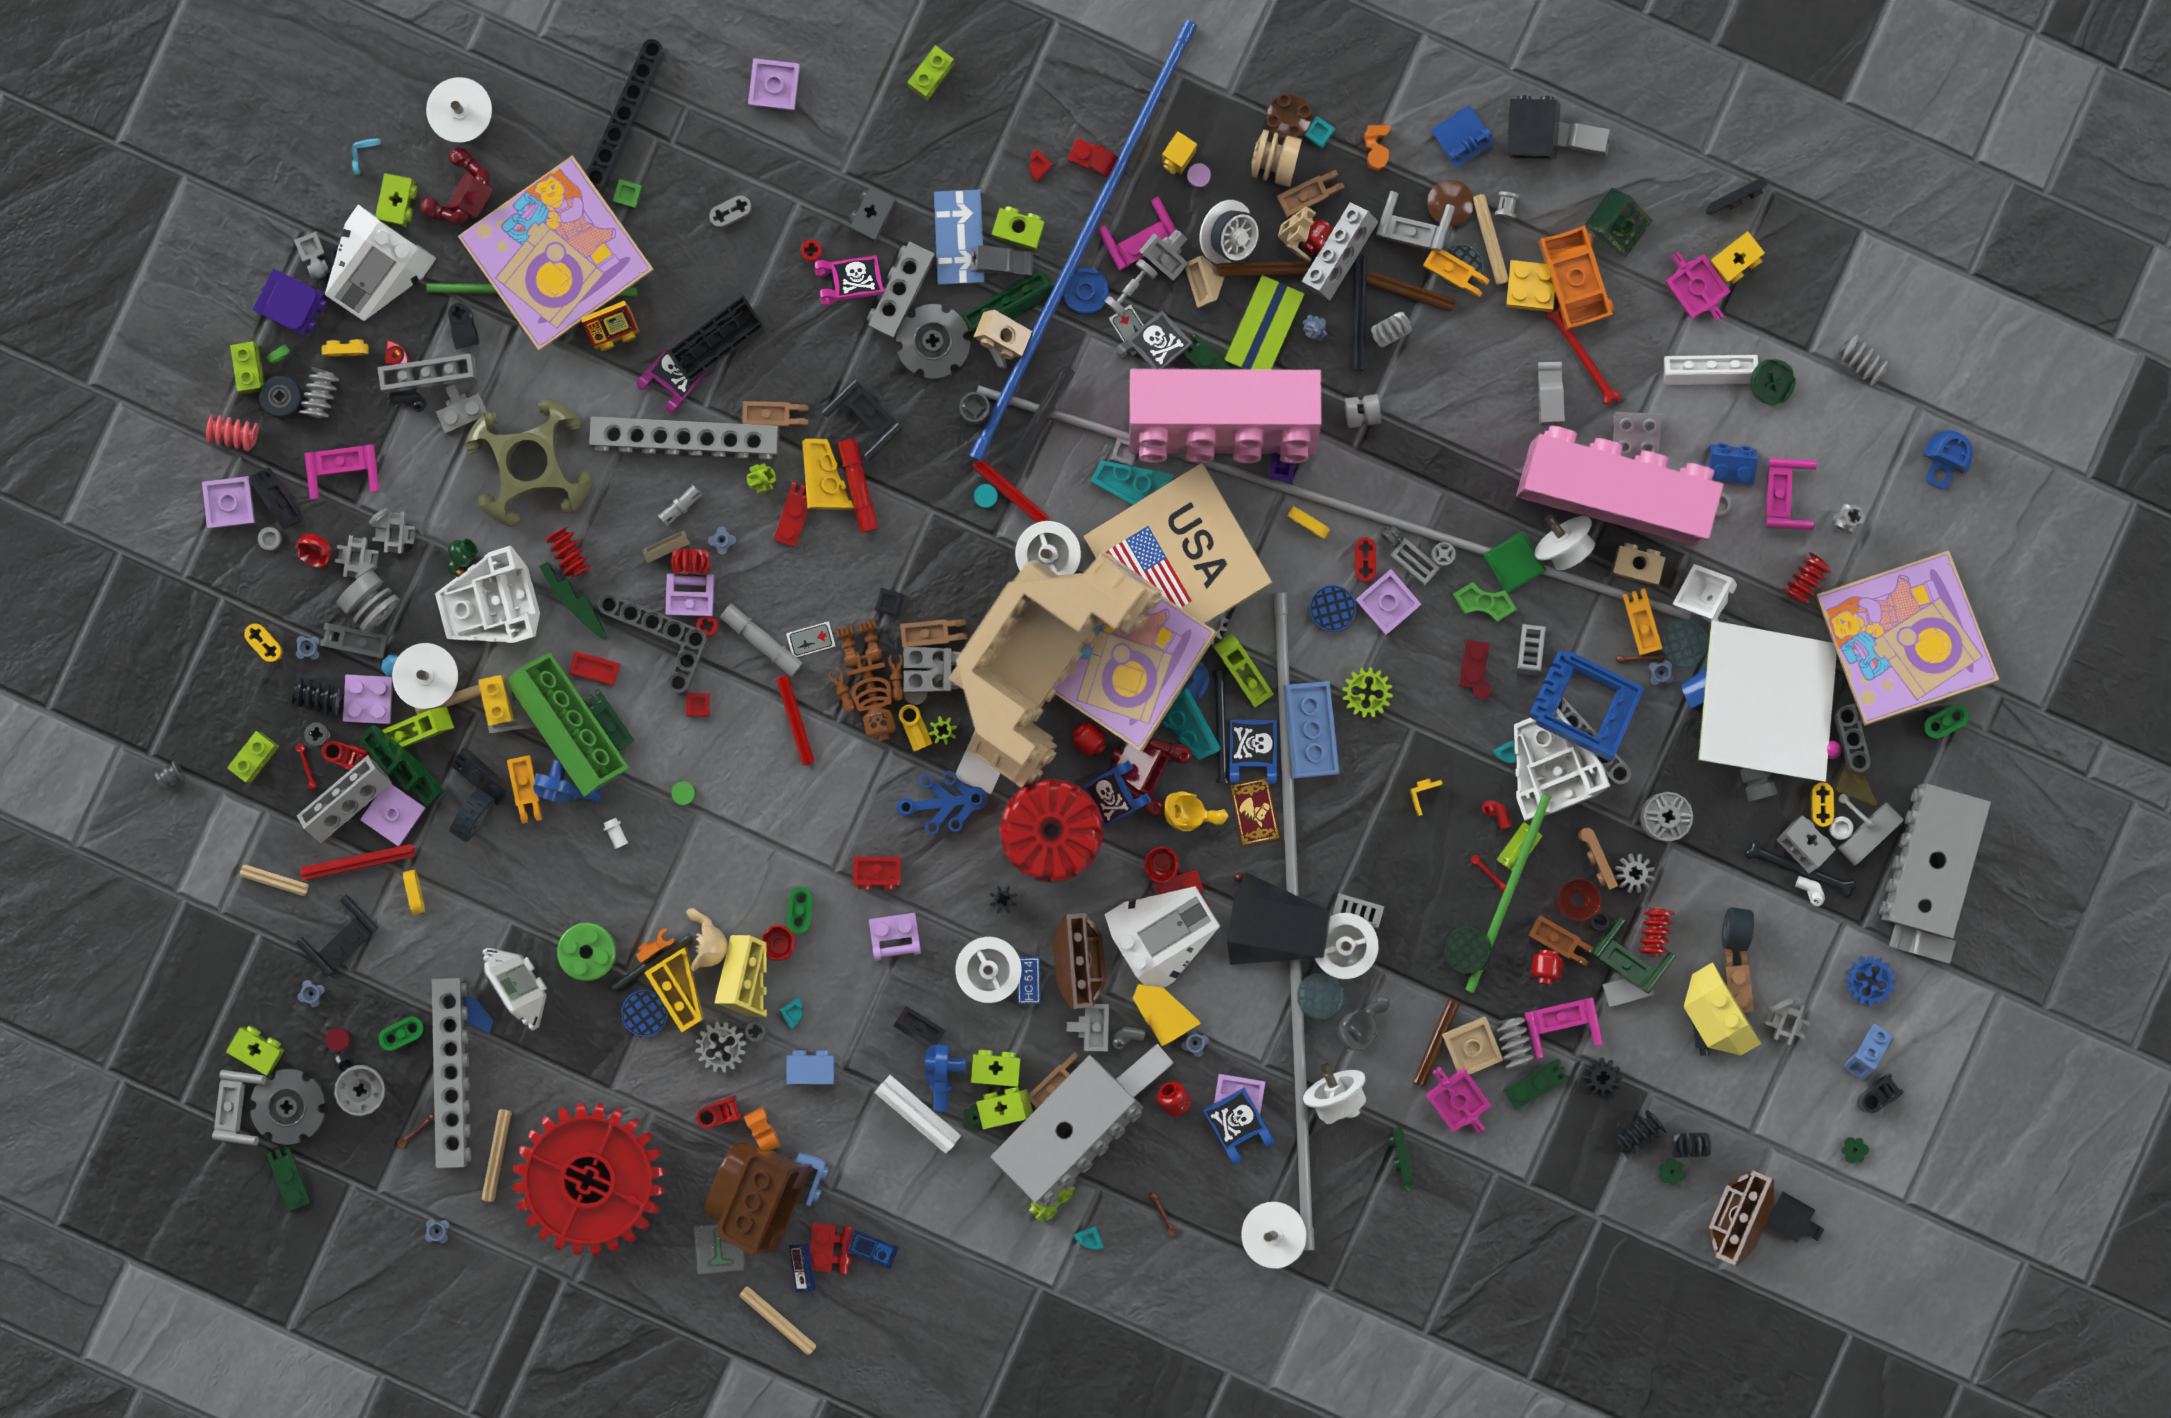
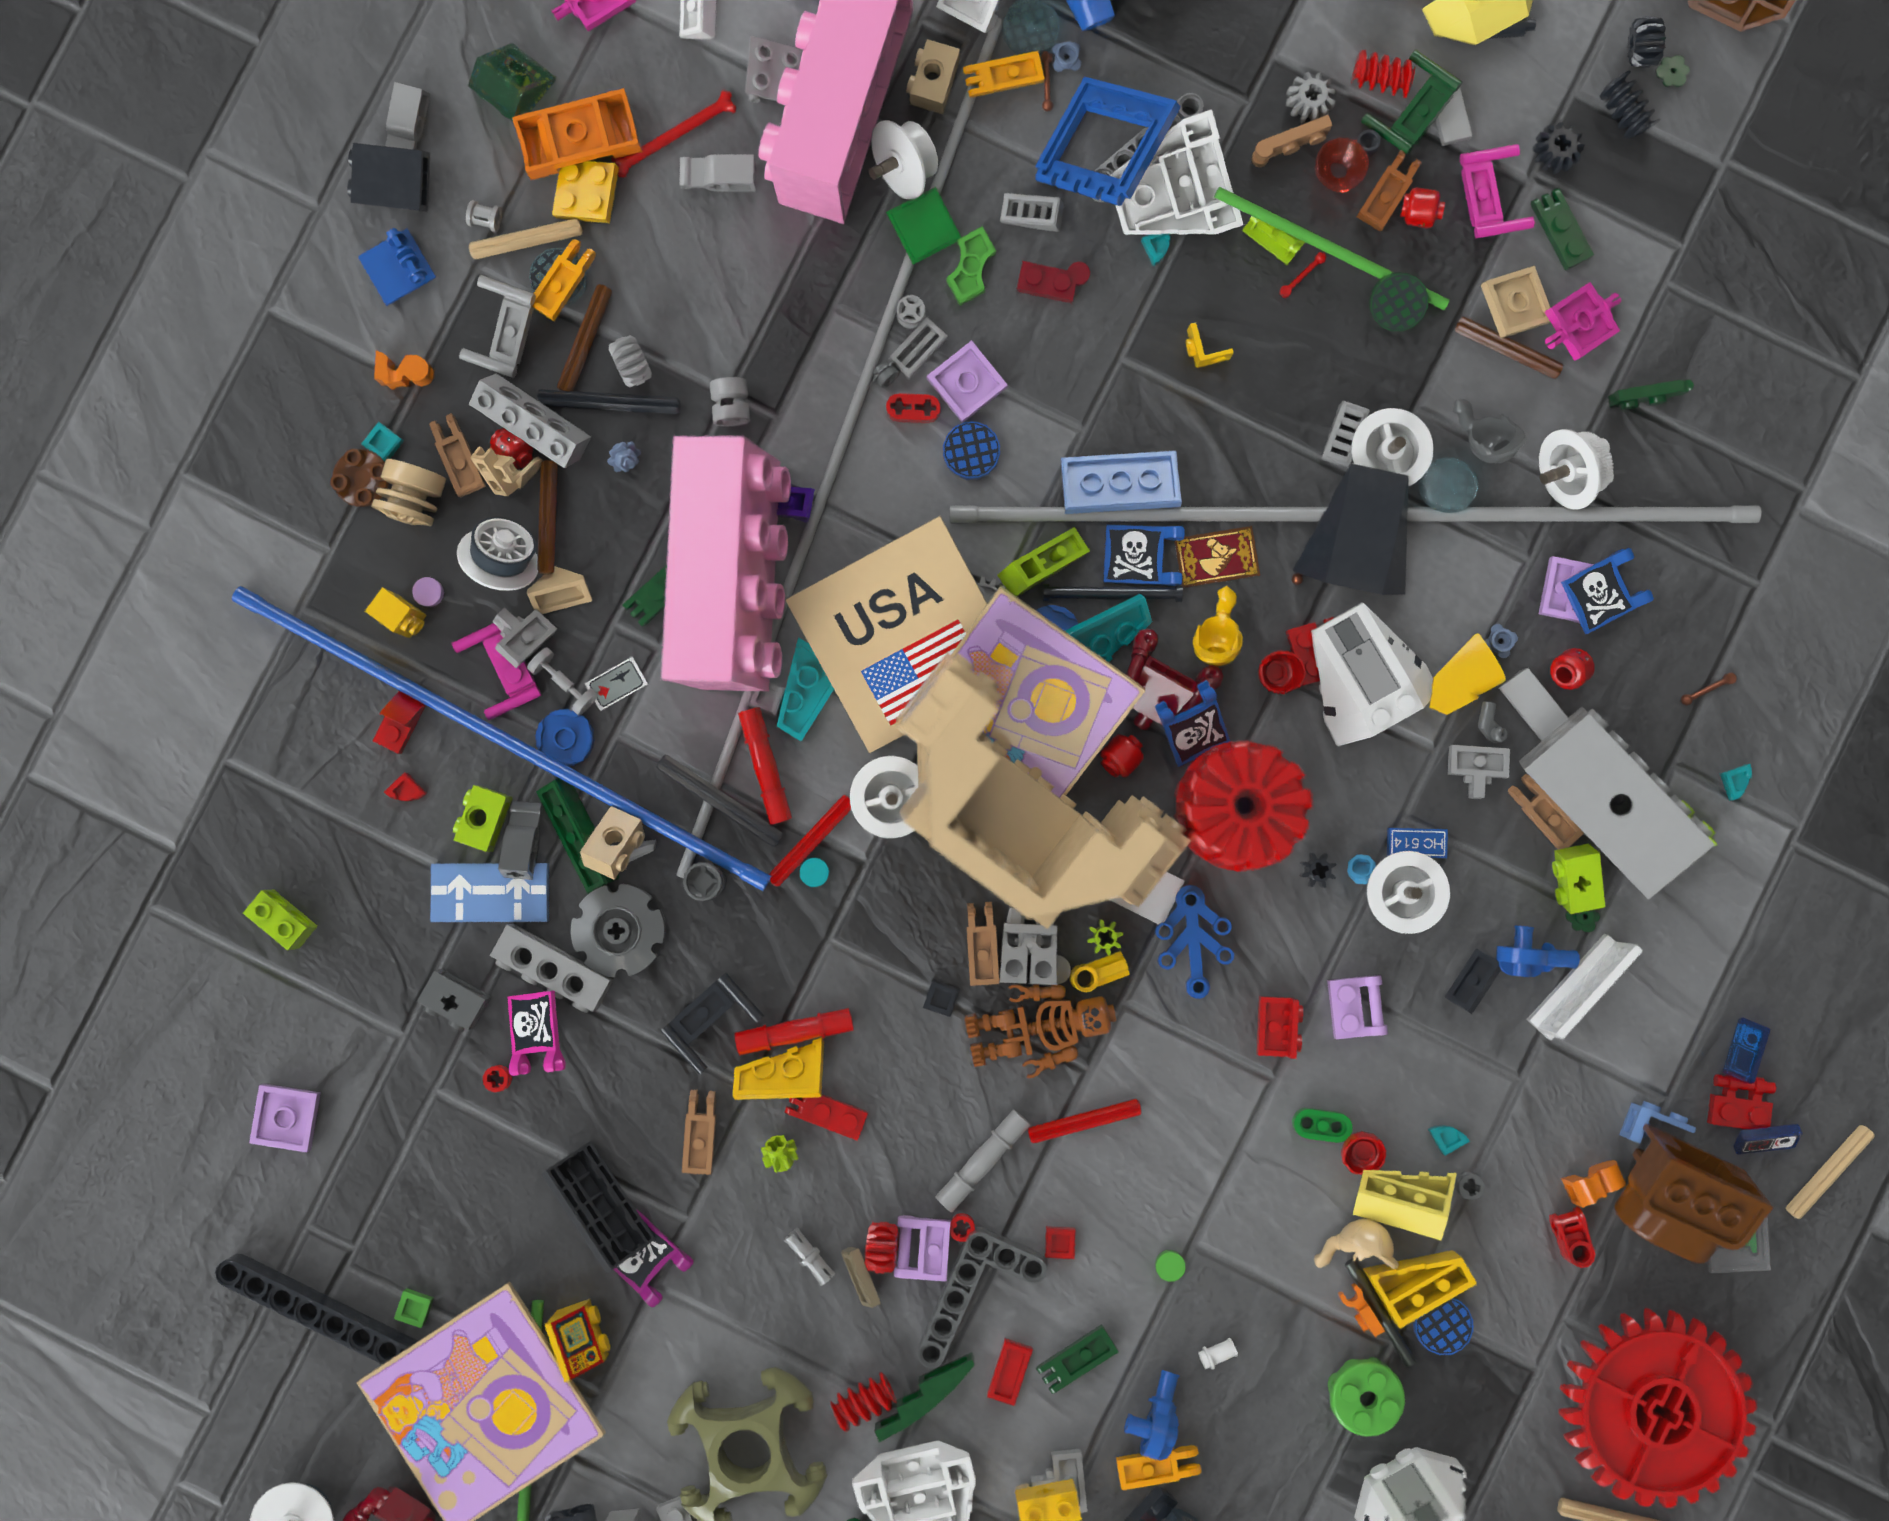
camera: 90 degrees left, 0 degrees up
(567, 724) = (1081, 1415): bright green brick -> none
(601, 427) = (708, 1354): light grey brick -> none
(707, 1043) = (1485, 1247): light grey gear -> none
(728, 540) = (855, 1196): sand blue plate -> none
(733, 216) = (436, 1181): light grey beam -> none
(810, 639) = (984, 1097): sticker -> none
(810, 1068) = (1520, 1119): medium blue brick -> none
(982, 1074) = (1534, 874): lime brick -> none
(1007, 933) = (1360, 868): none -> dark azure tile
(1069, 452) = (765, 765): none -> red piece
(1079, 960) = (1400, 779): reddish brown wedge -> none
(1156, 342) = (632, 652): flag -> none
(1264, 325) = (617, 519): lime tile -> none
(1274, 1235) = (1747, 551): white piece -> none
(1308, 522) = (865, 474): yellow beam -> none
(1356, 700) = (1091, 402): lime gear -> none
(1454, 194) = (464, 285): reddish brown dish -> none
(1498, 811) = (1228, 259): red arm -> none
(1515, 1042) = (1513, 248): light grey piece -> none
(1653, 822) = (1243, 69): light grey wheel -> none

